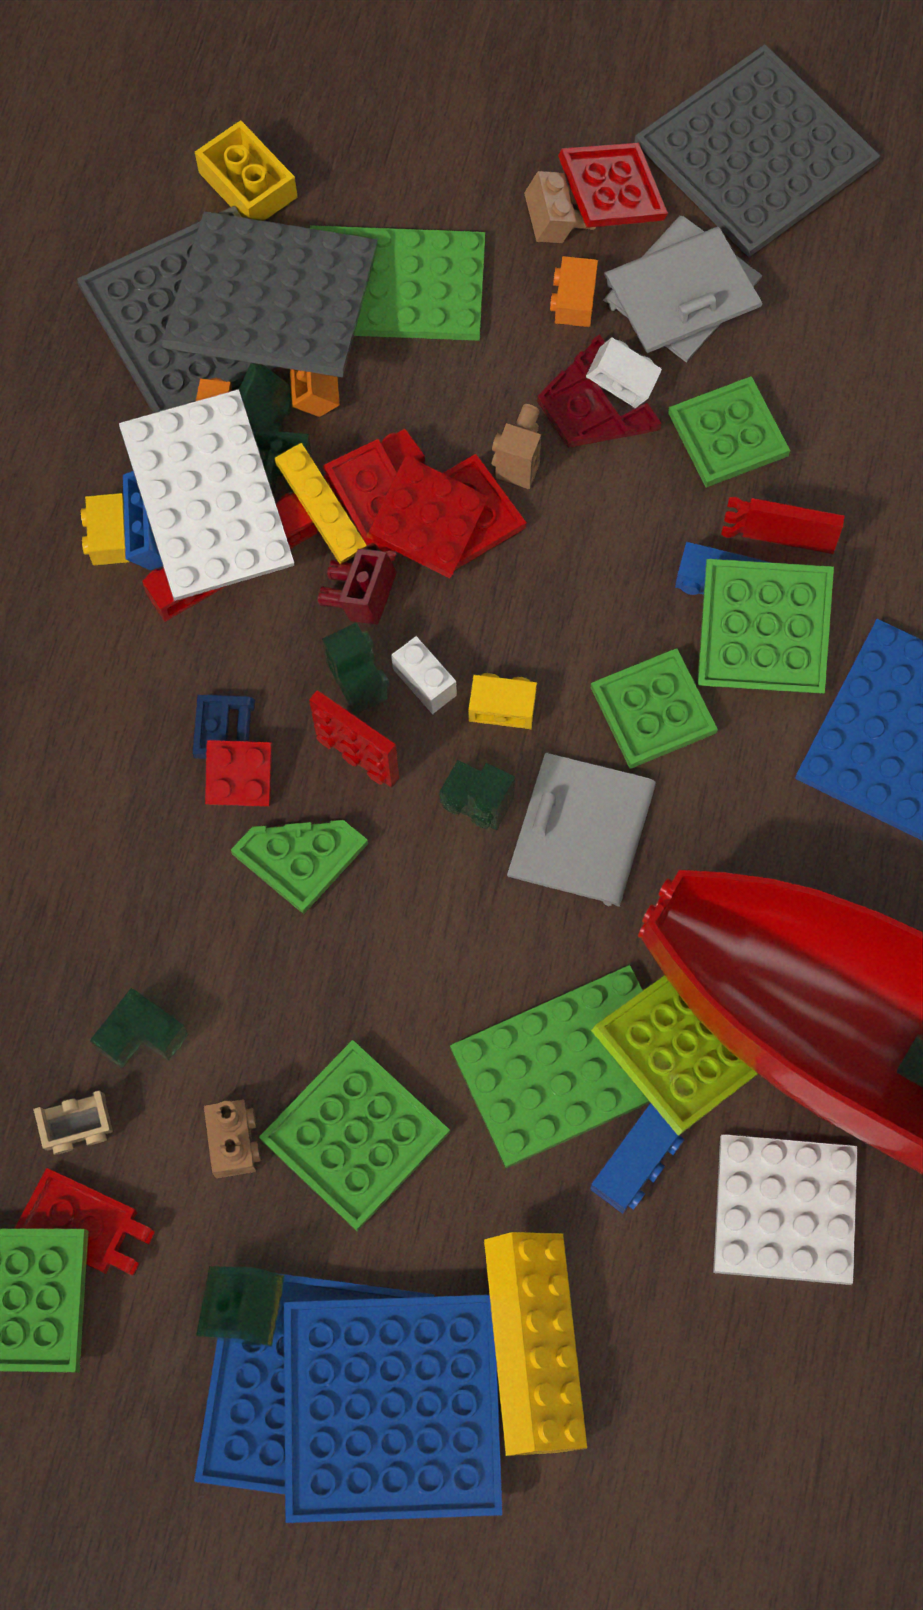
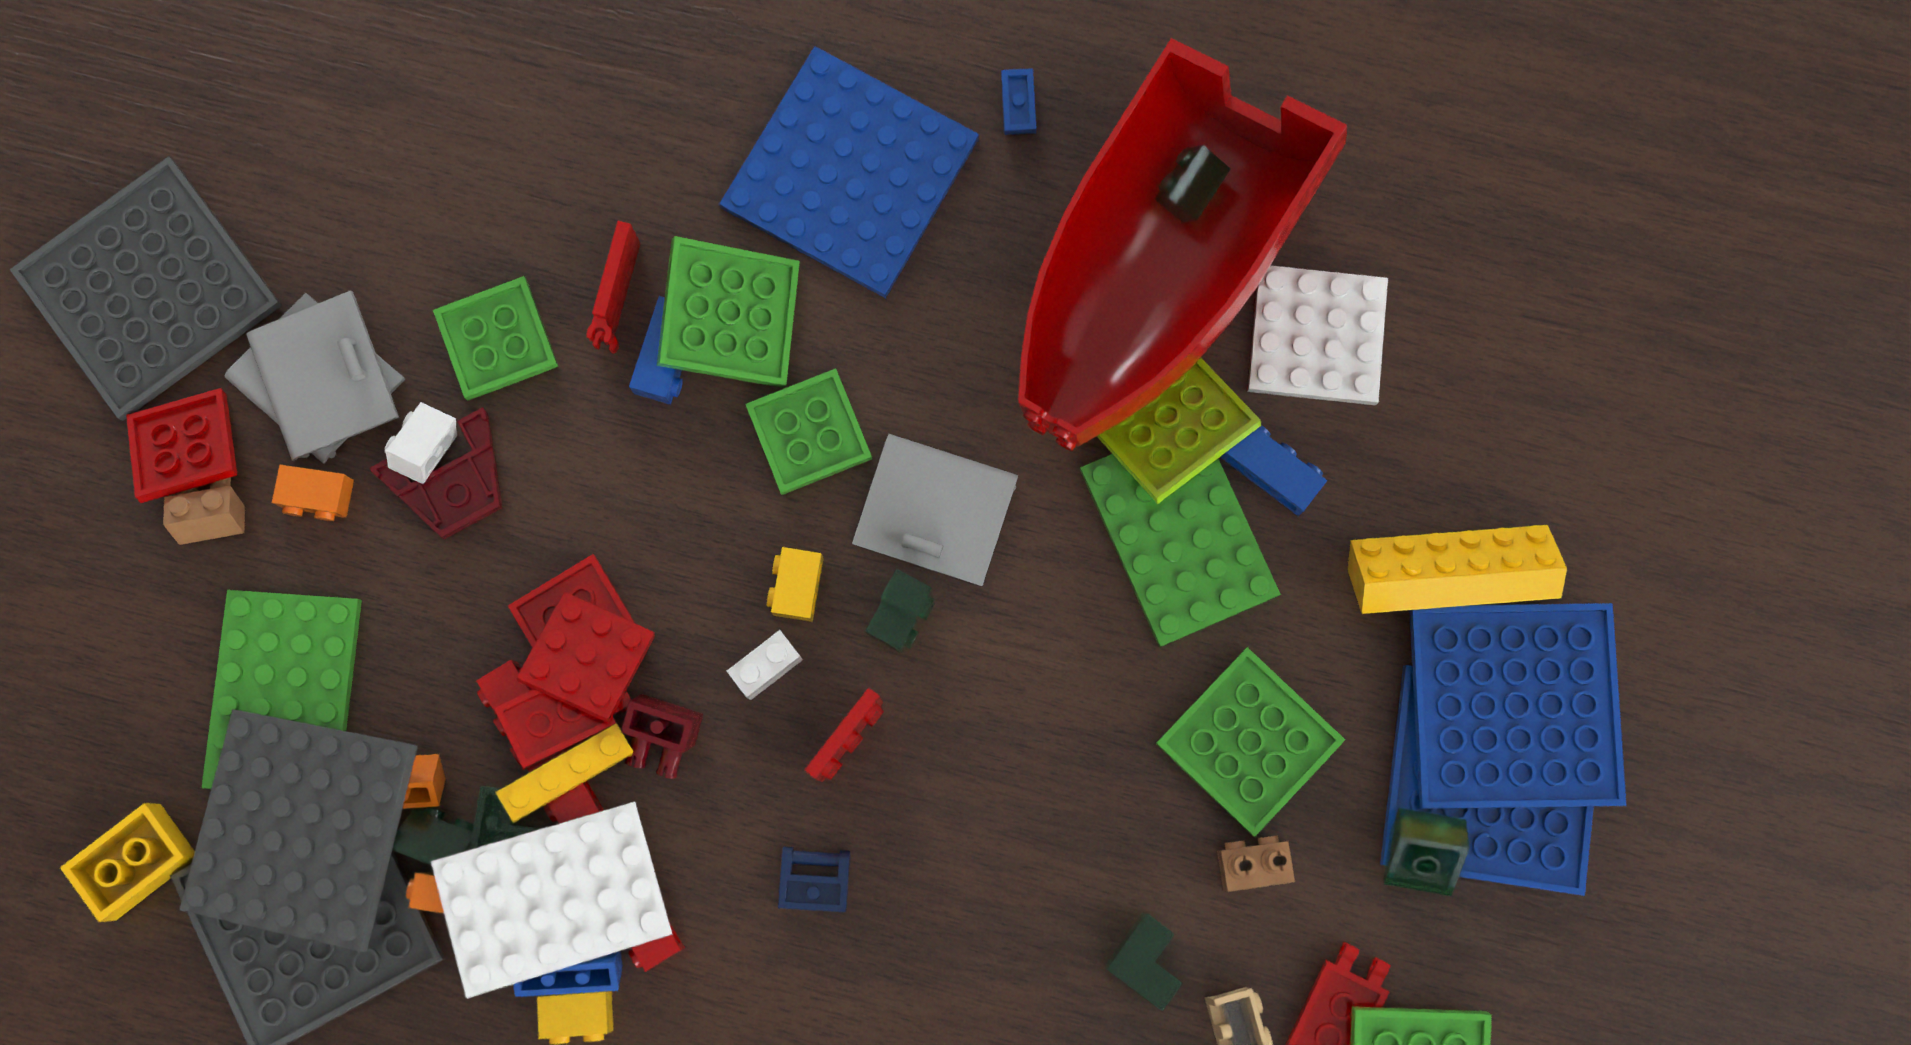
camera: 90 degrees left, 10 degrees up
(238, 773) = (868, 862): red plate -> none
(300, 857) = (961, 797): bright green plate -> none
(352, 666) = (757, 738): clear green brick -> none
(518, 449) = (511, 557): medium nougat brick -> none

